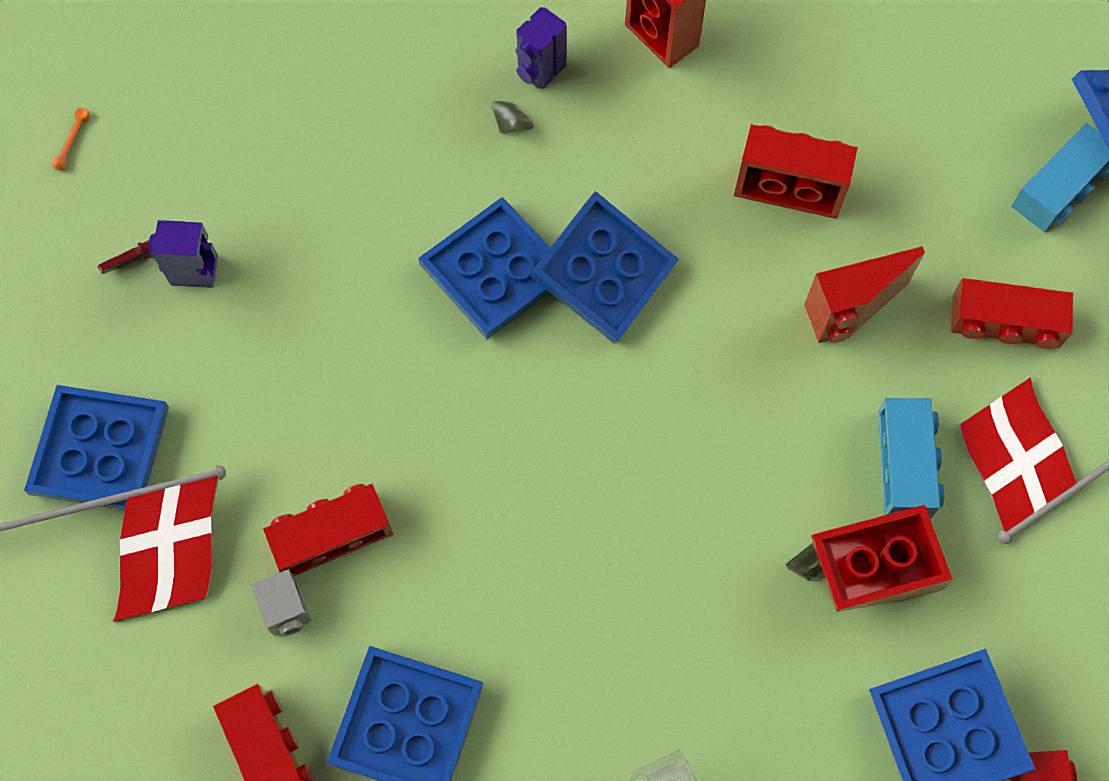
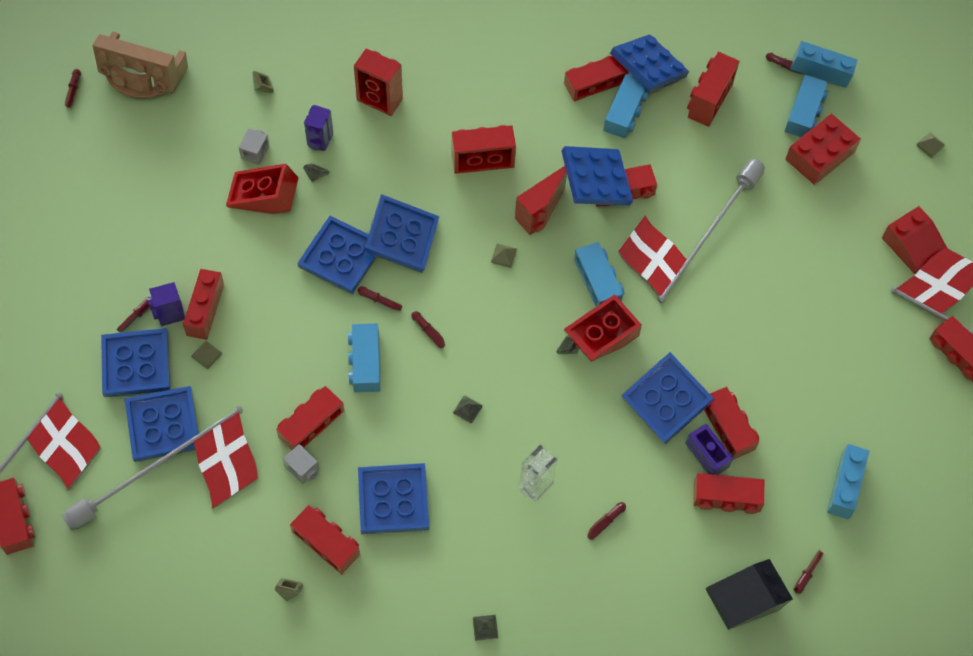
camera: 25 degrees left, 5 degrees down
(82, 116) = (65, 252): orange hinge -> none
(101, 331) = (135, 362): none -> blue plate
(217, 357) = (206, 354): none -> olive slope
(244, 273) = (203, 304): none -> red brick
(418, 119) = (263, 189): none -> red slope
(432, 44) = (254, 146): none -> light grey brick
(460, 457) = (364, 357): none -> dark azure brick
(528, 365) = (376, 297): none -> dark red piece
(585, 445) = (434, 335): none -> dark red piece
(595, 610) = (467, 409): none -> clear smoke slope
(761, 362) = (504, 255): none -> olive slope
(971, 283) = (596, 176): none -> blue plate
(1029, 112) = (594, 78): none -> red brick

